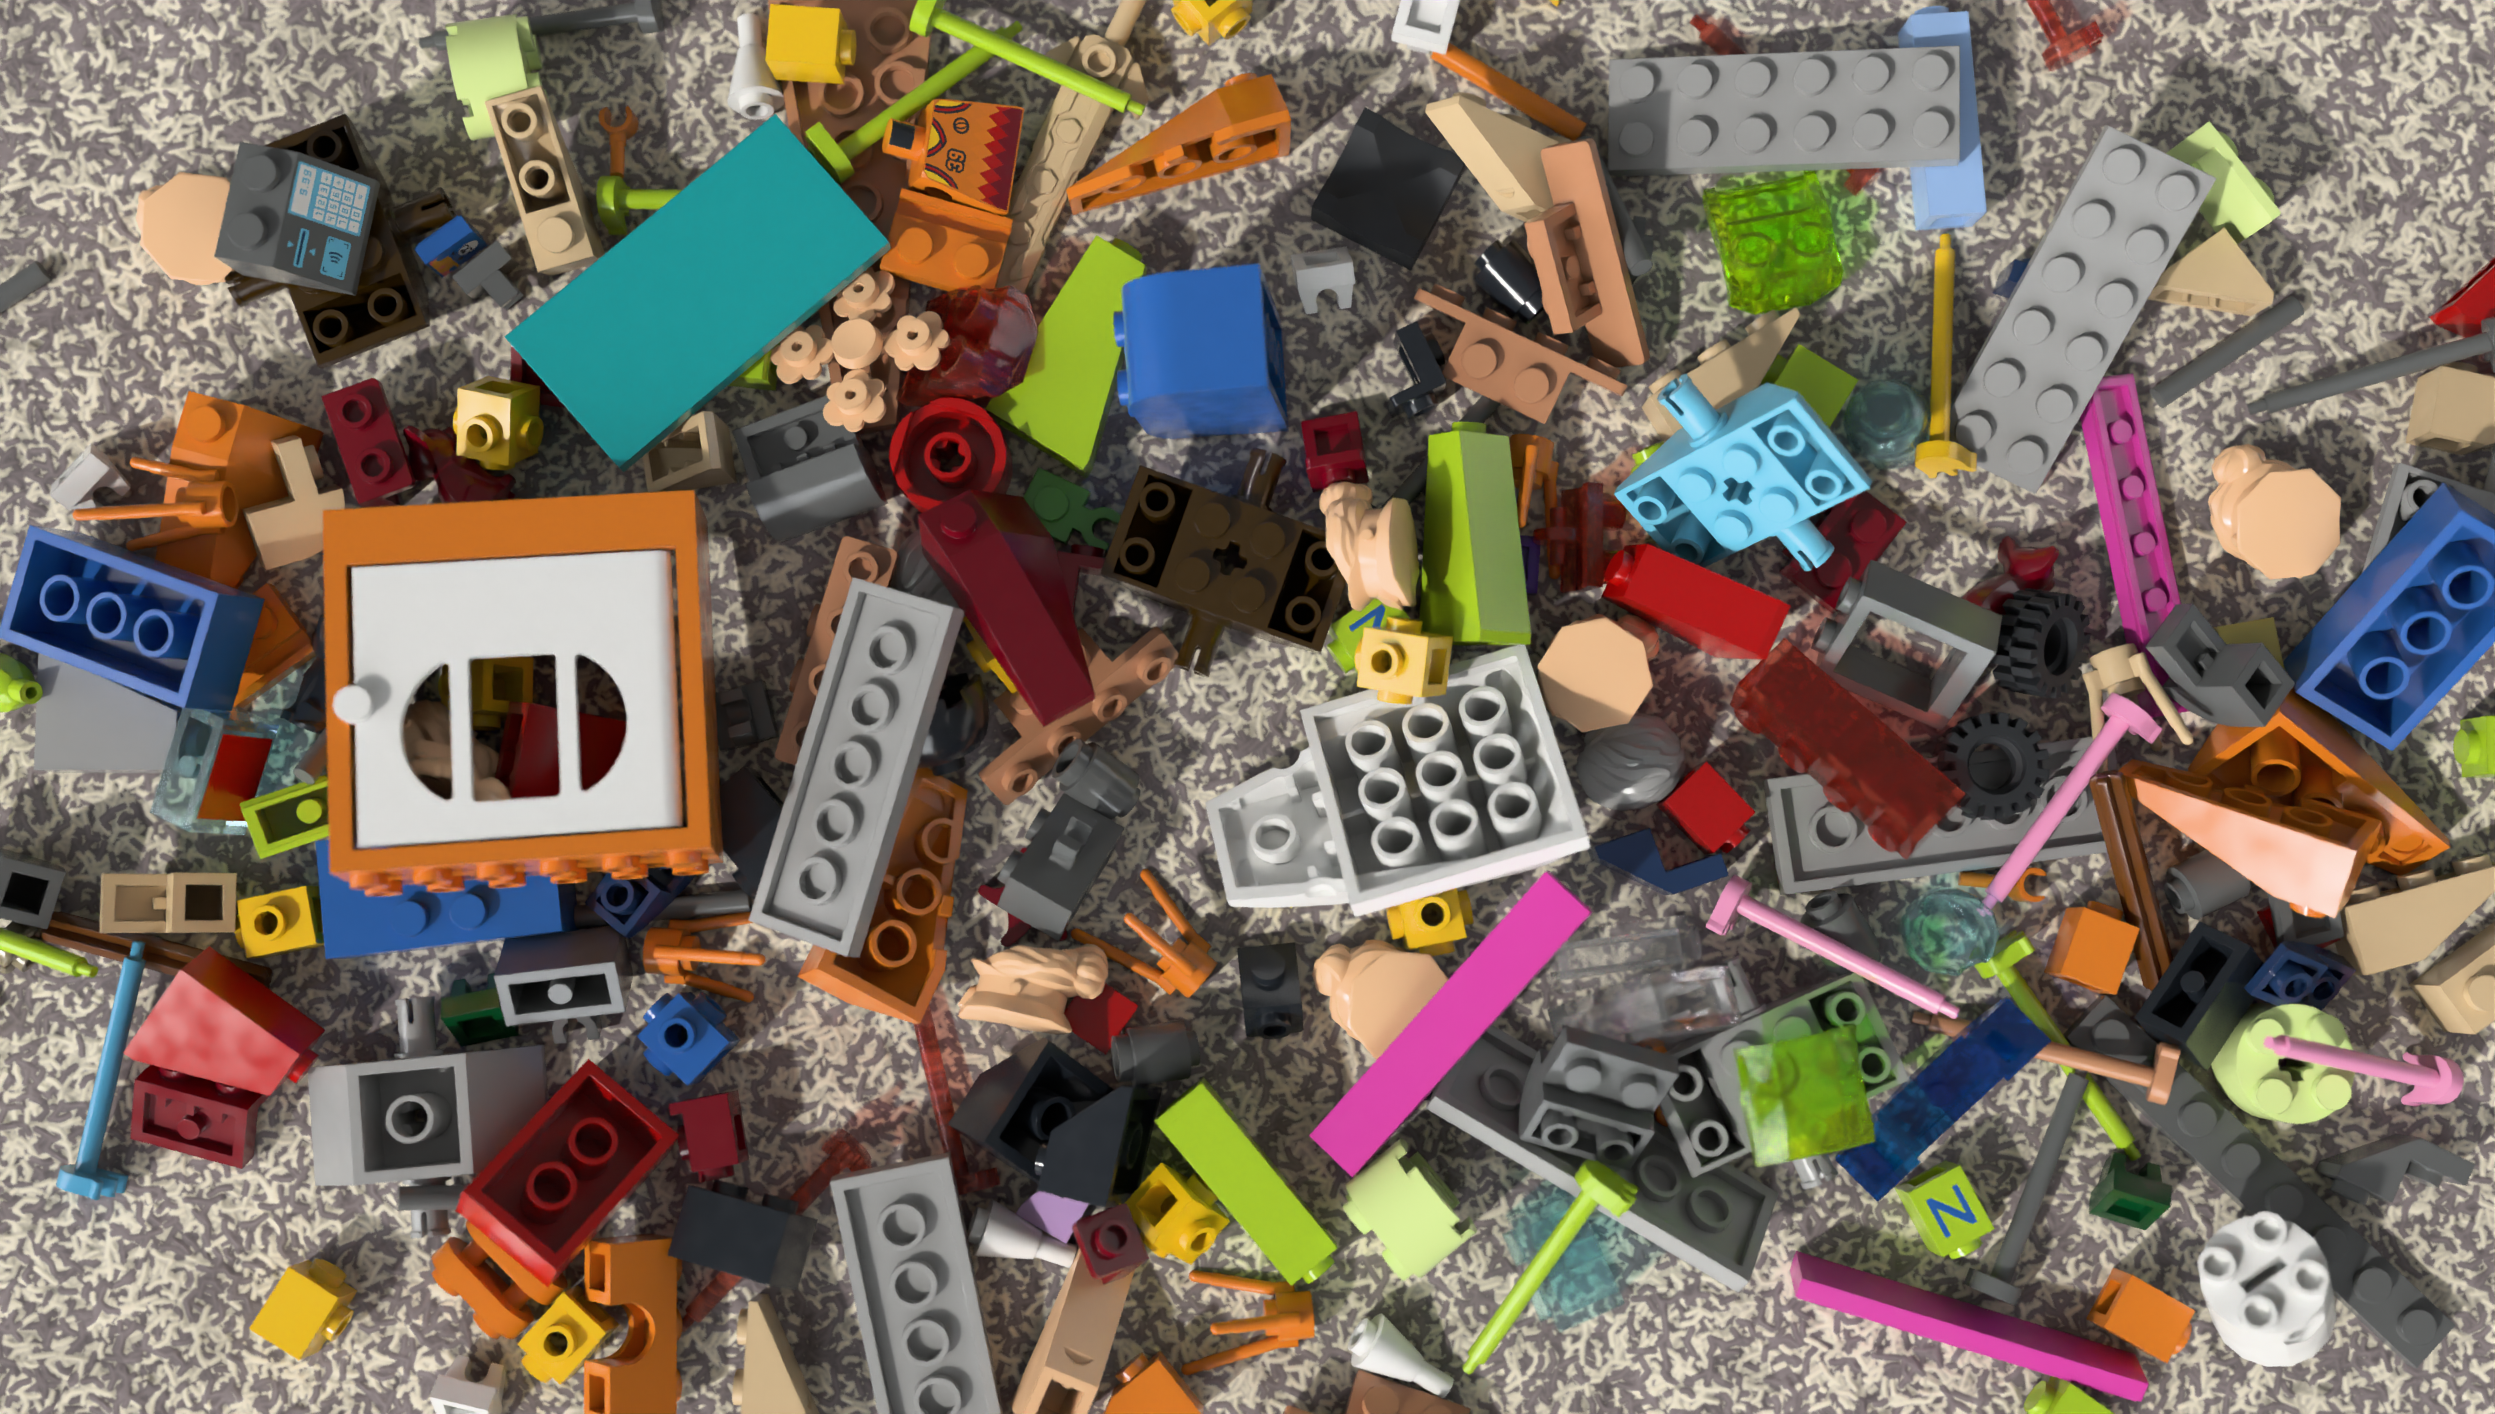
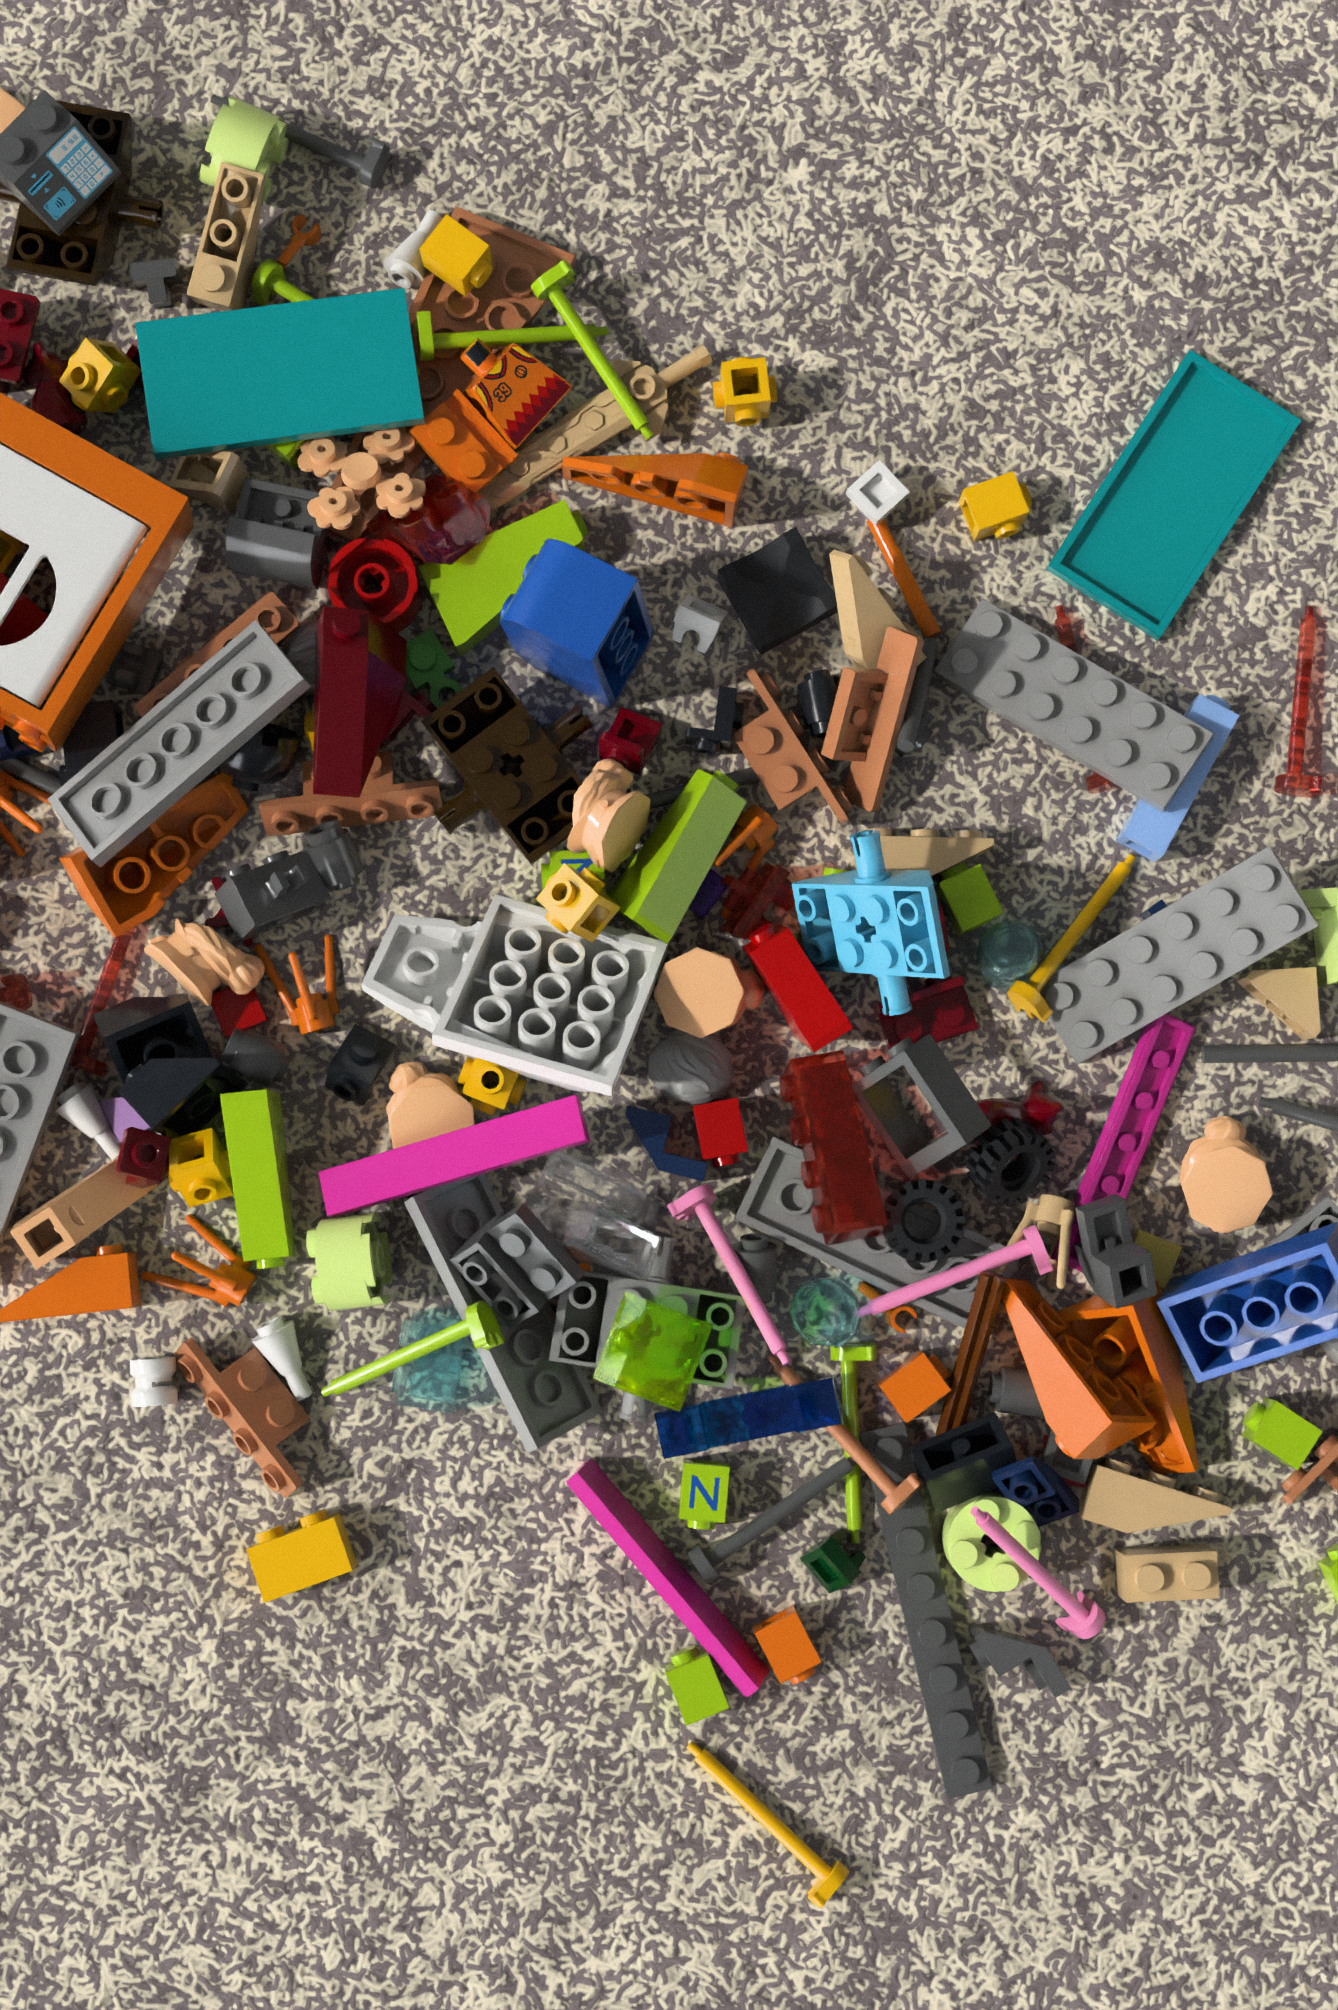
camera: 30 degrees right, 0 degrees up
(450, 246) = (144, 243): blue tile -> none
(1774, 243) = (1010, 788): clear neon green slope -> none
(2268, 1290) = (875, 1677): white cylinder -> none

